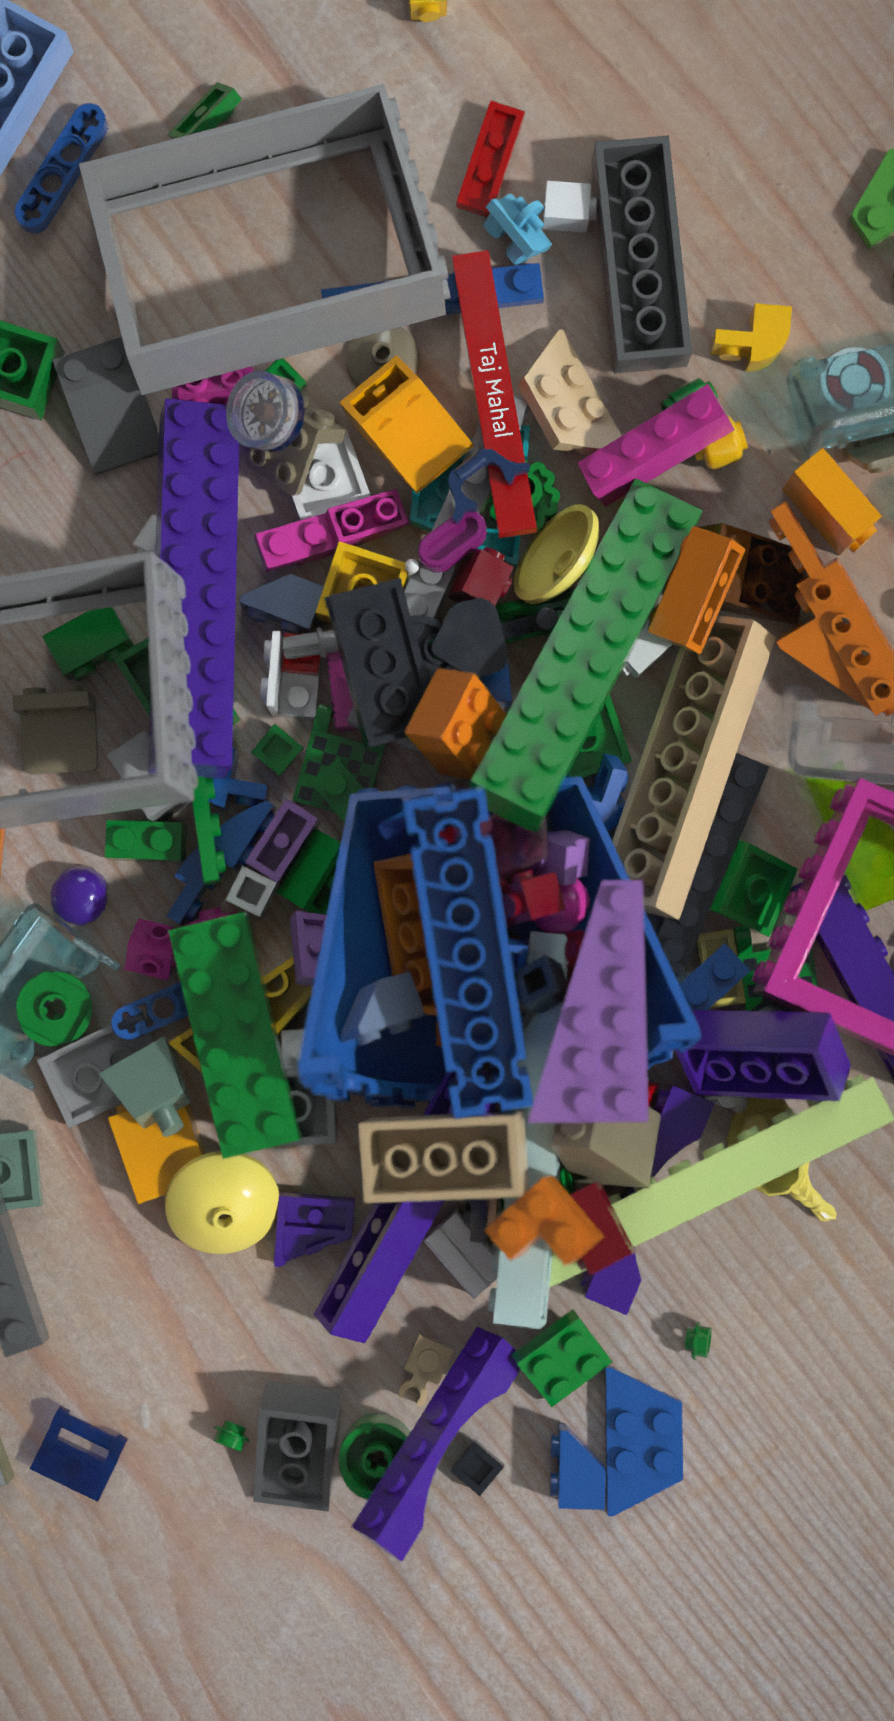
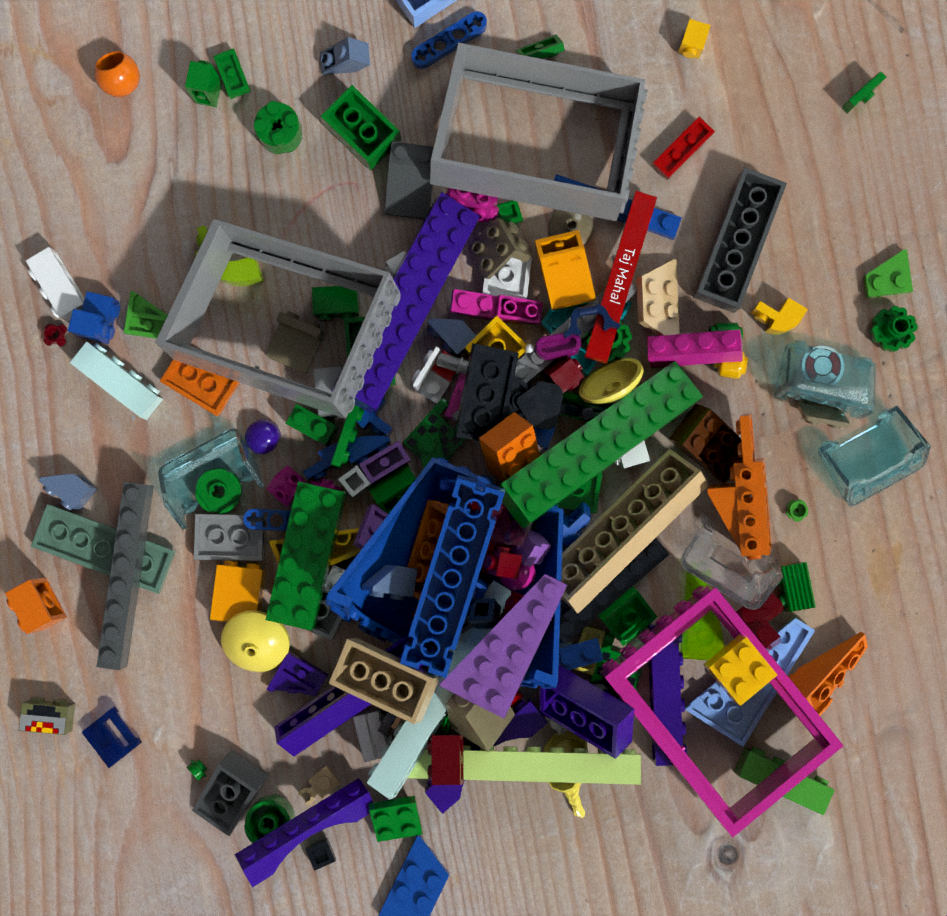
camera: 30 degrees right, 0 degrees up
(150, 1086) = (247, 560): sand green torso -> none
(265, 411) = (491, 225): clear piece -> none
(277, 750) = (407, 411): green plate -> none
(521, 224) = (681, 190): medium azure hips -> none
(548, 1214) = (425, 740): orange brick -> none
(568, 206) = (712, 194): white brick -> none
(579, 1473) = (374, 886): blue slope -> none
(696, 589) = (677, 438): orange brick -> none
(698, 1341) = (474, 846): green plate -> none
(832, 503) = (776, 427): light orange brick -> none

